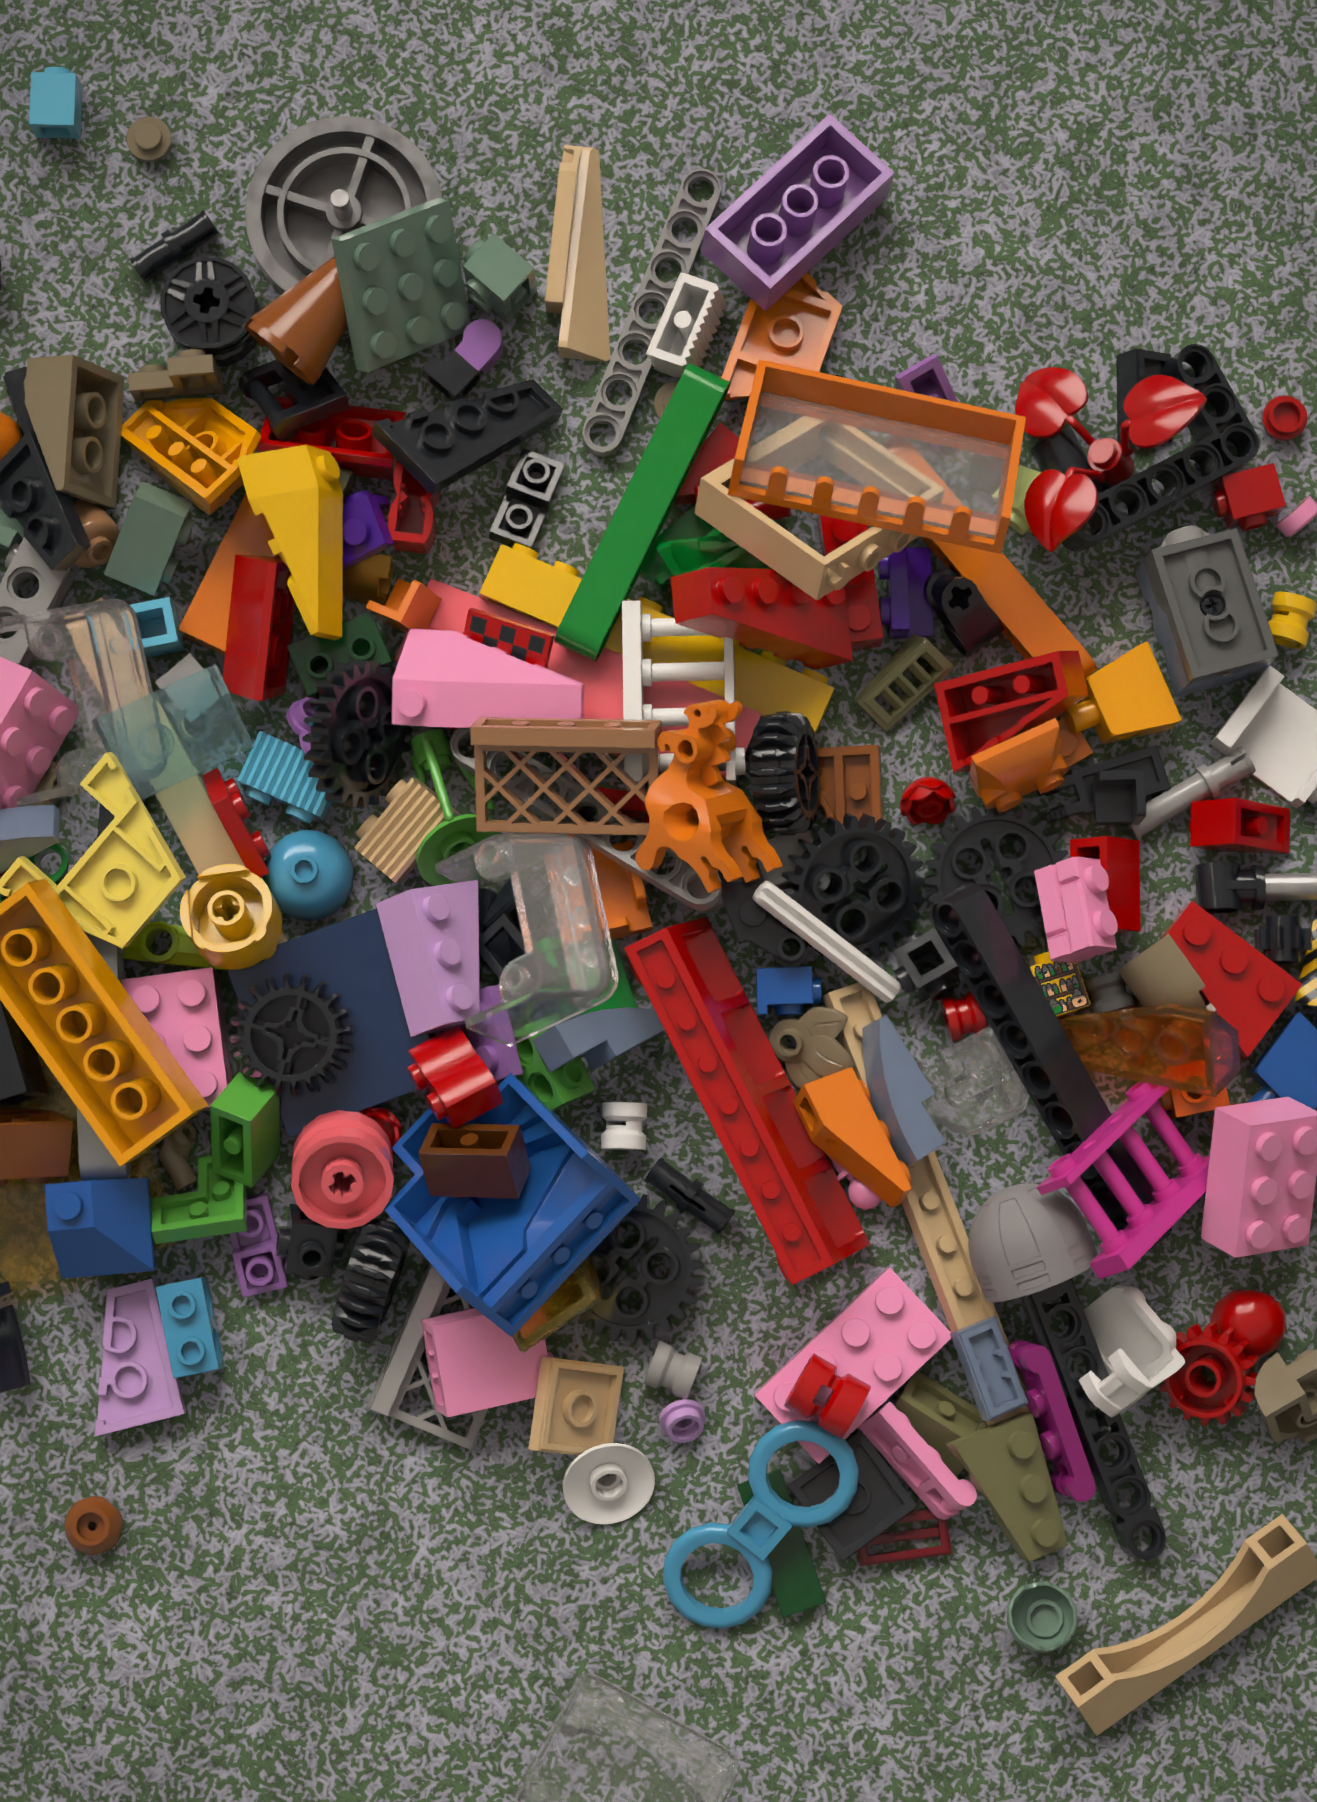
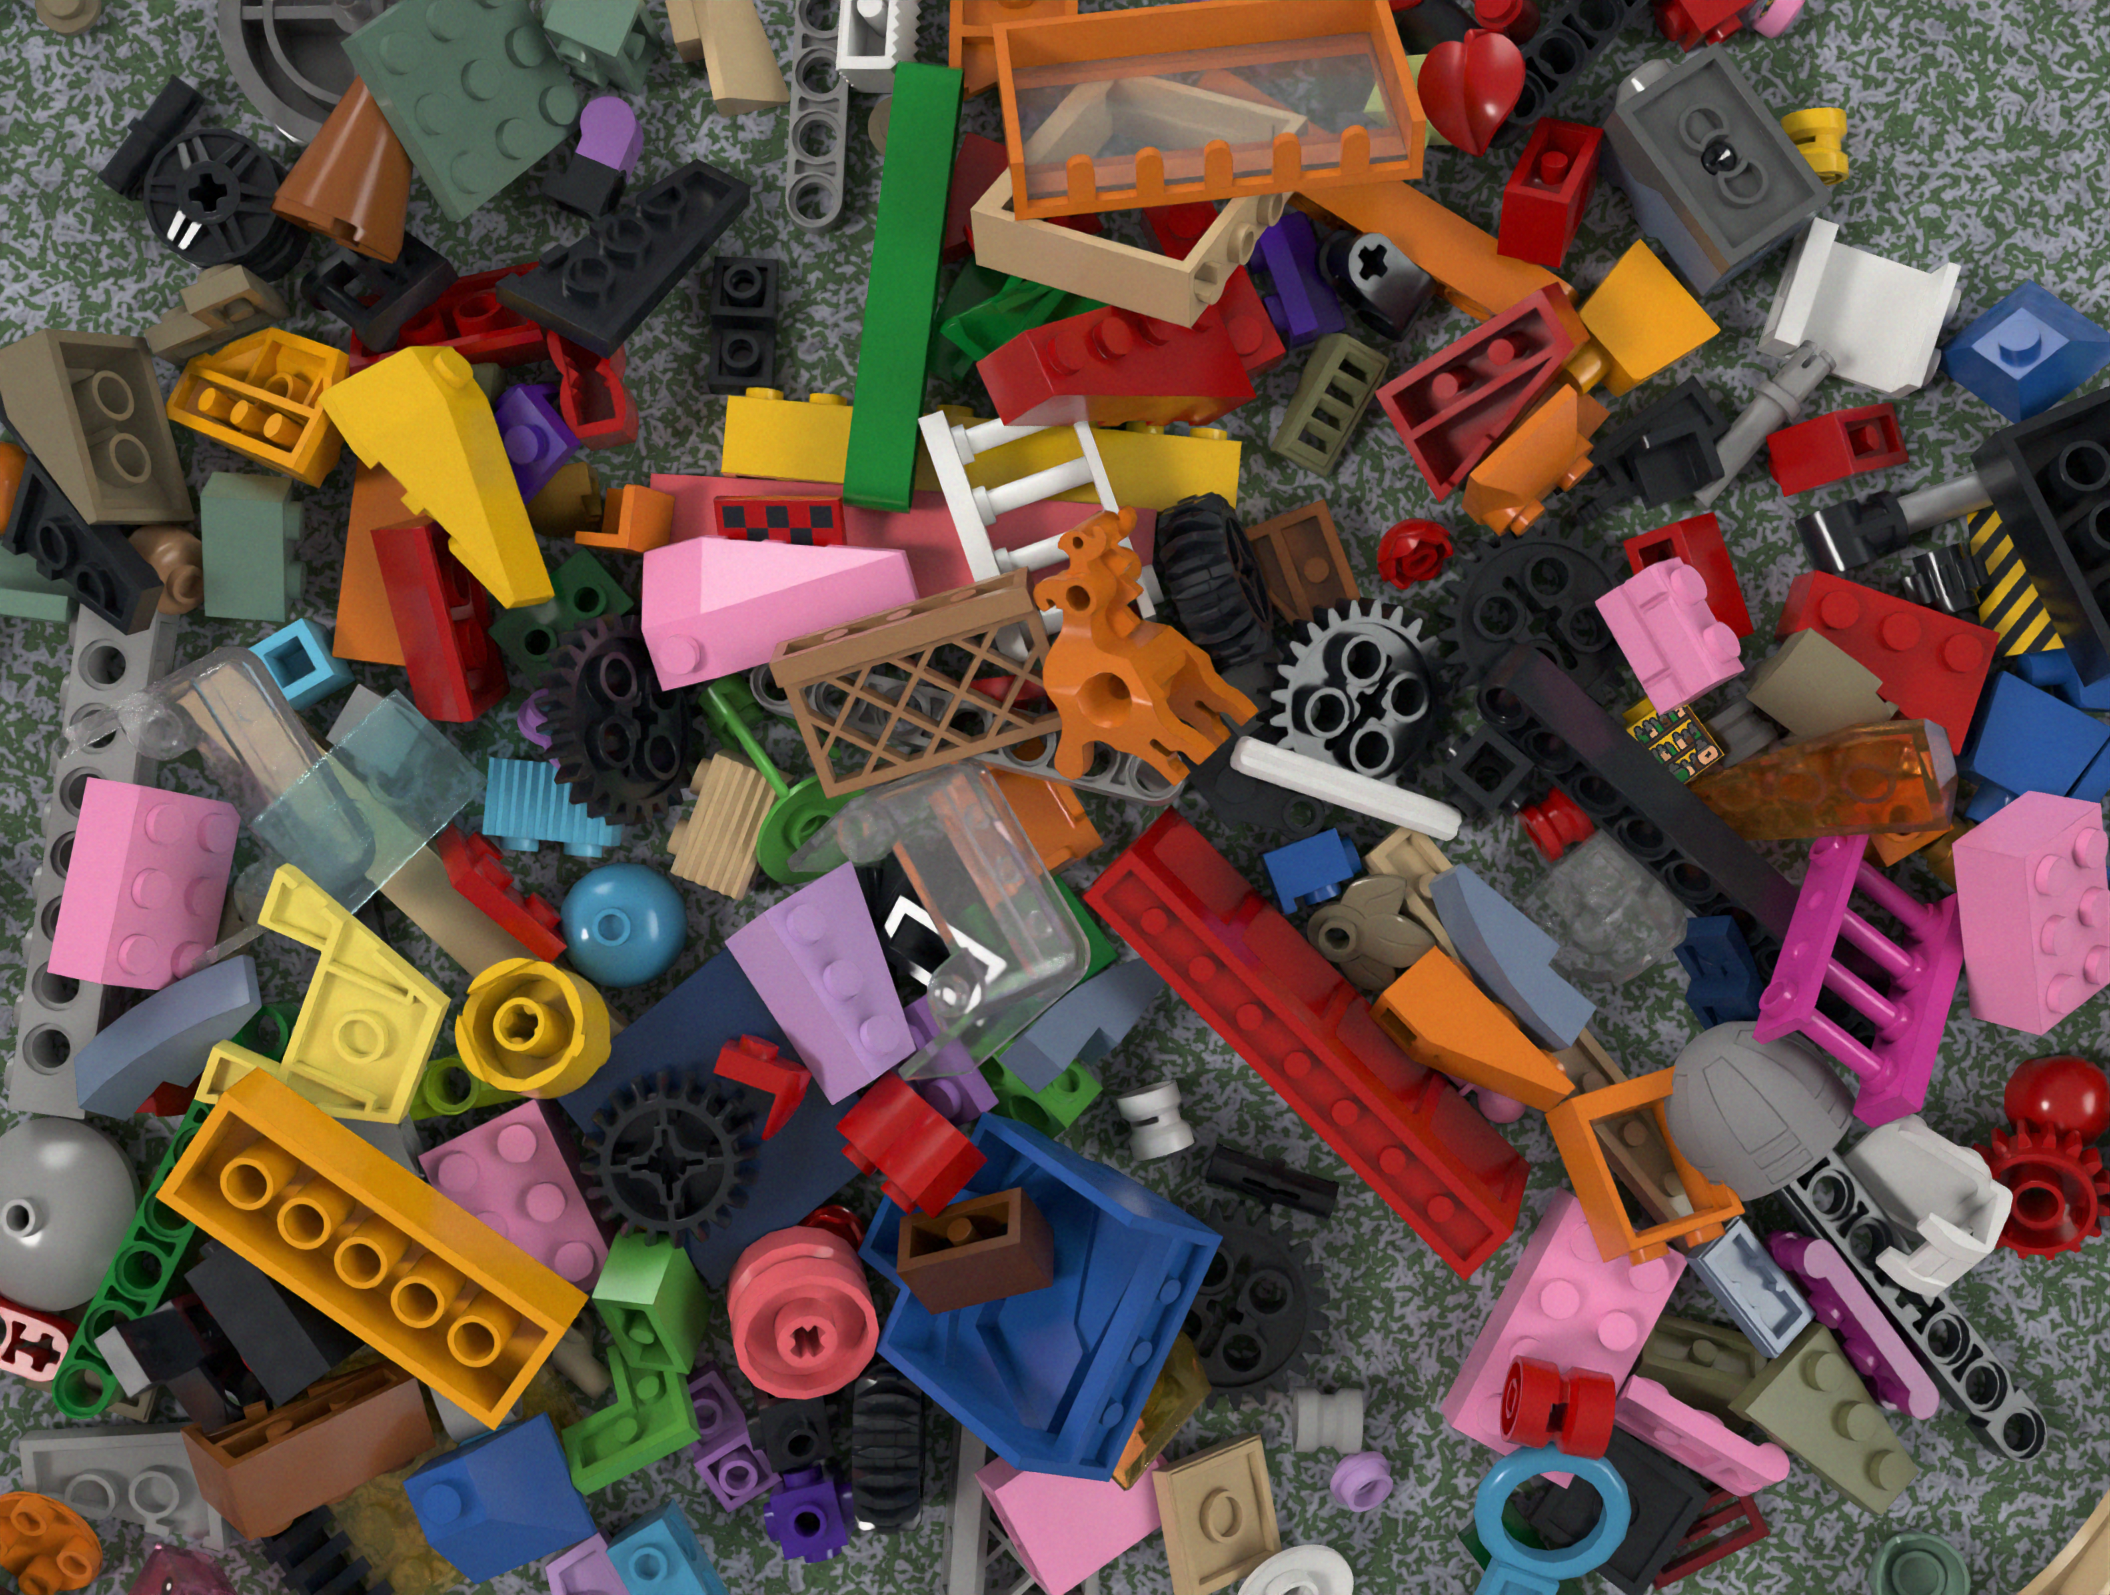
camera: 20 degrees left, 5 degrees up
(318, 1312) = (812, 1490): none -> dark purple brick
(371, 990) = (758, 1065): none -> red plate
(942, 1214) = (1604, 1211): none -> orange window
(1040, 1143) = (1721, 972): none -> dark blue slope
(1095, 590) = (1549, 192): none -> red brick

